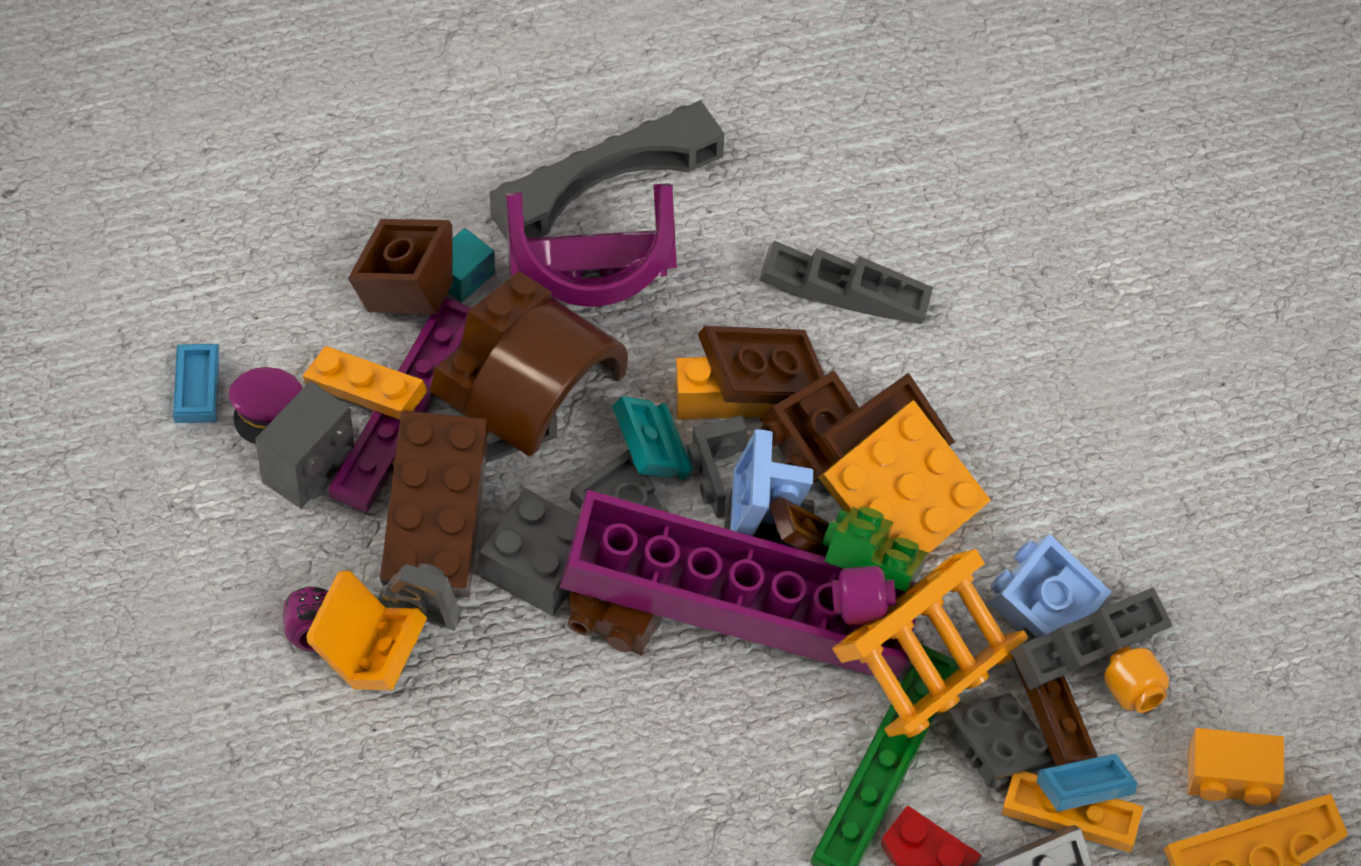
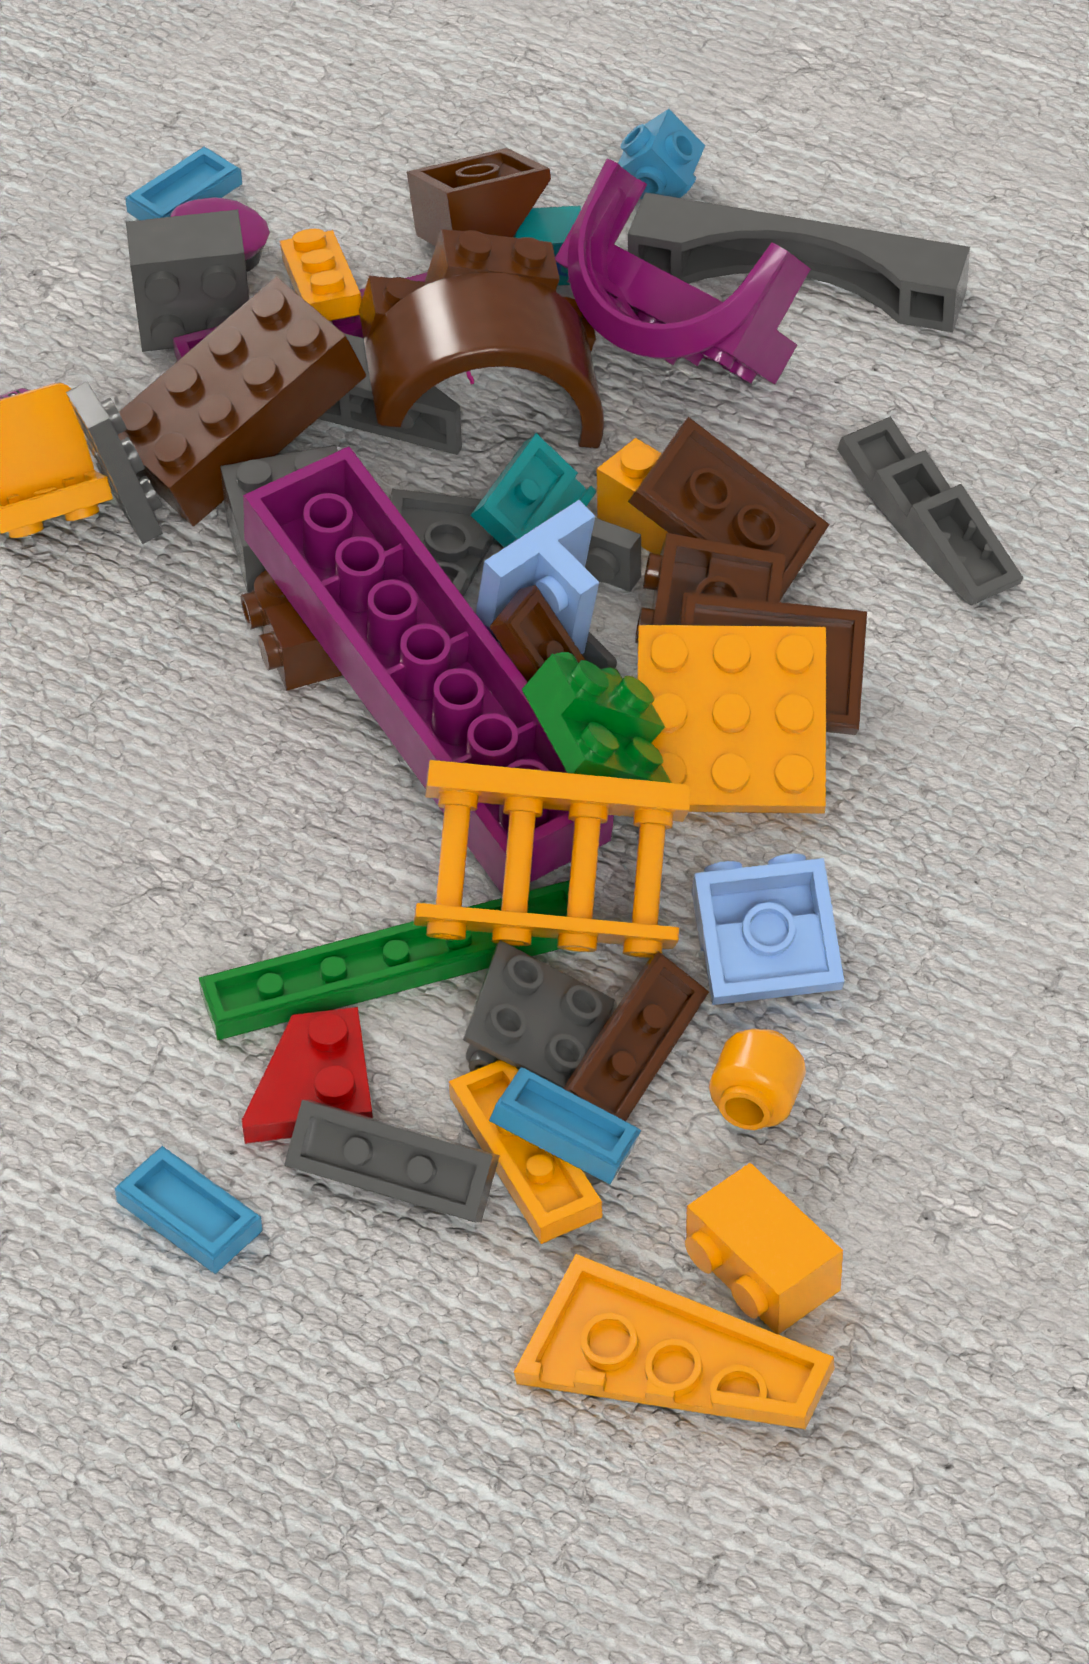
camera: 50 degrees right, 10 degrees down
(462, 161) = (662, 155): none -> dark azure brick
(862, 595) = (510, 733): magenta head -> none
(1091, 638) = (744, 994): dark grey slope -> none

